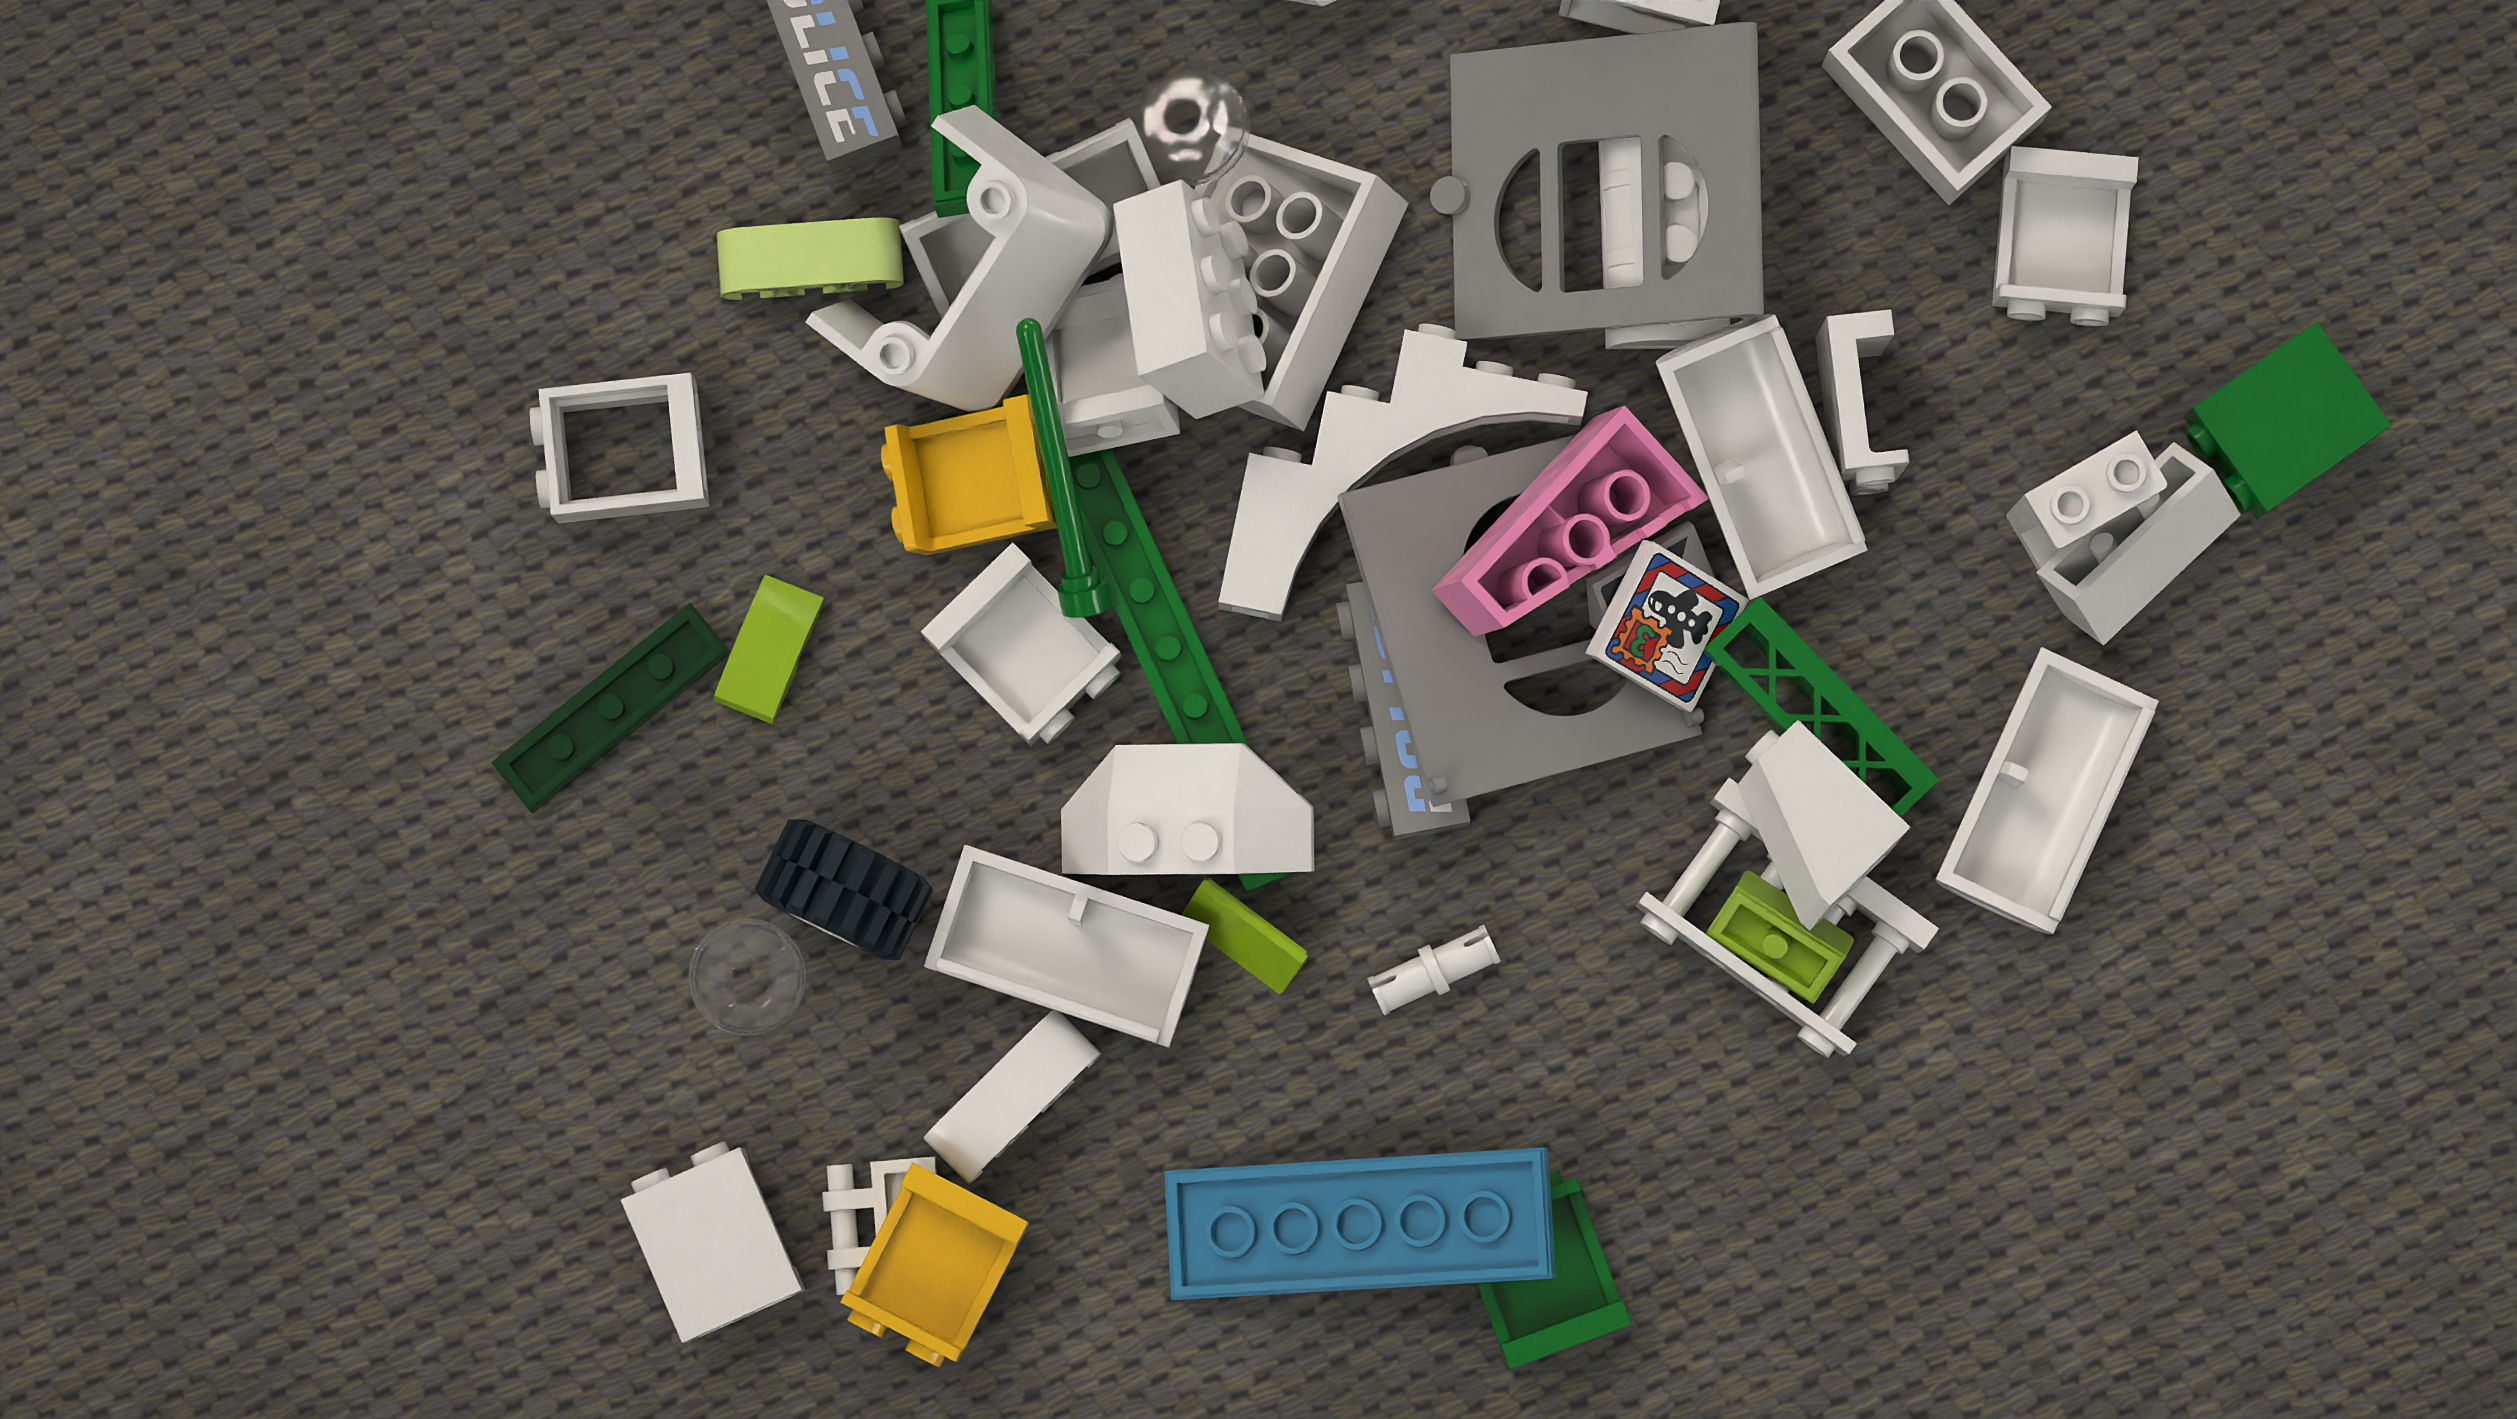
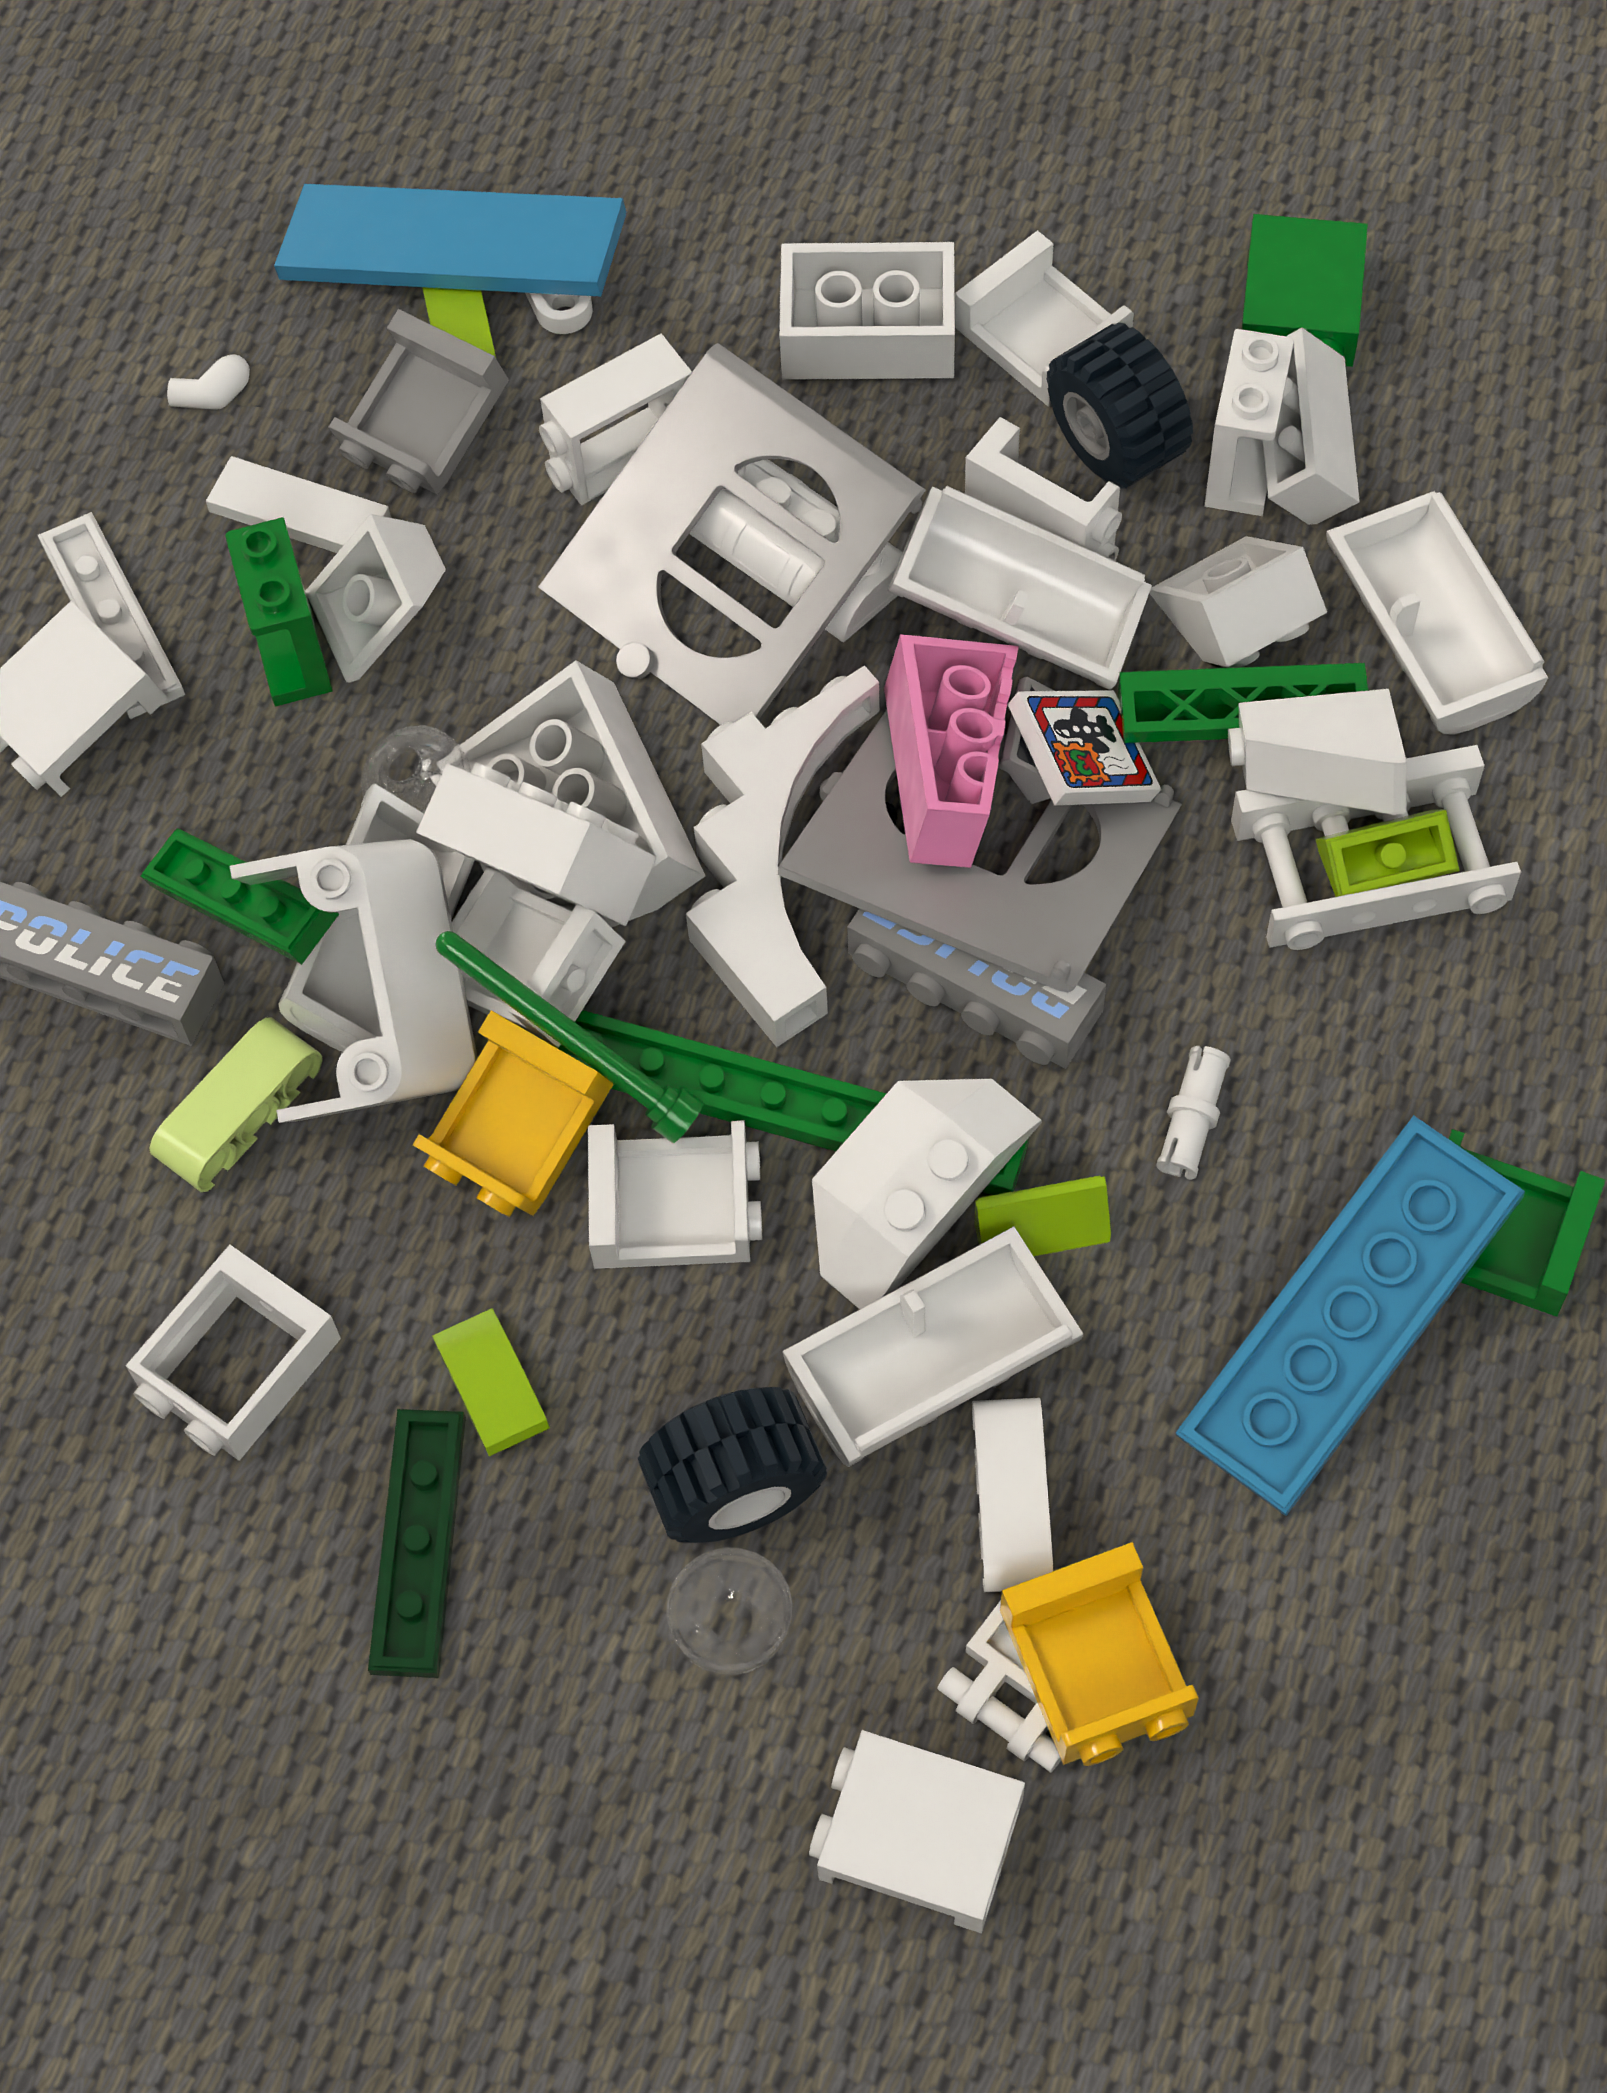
camera: 45 degrees left, 20 degrees down
(1926, 623) = (1242, 600): none -> white slope
(2011, 381) = (1119, 405): none -> black wheel

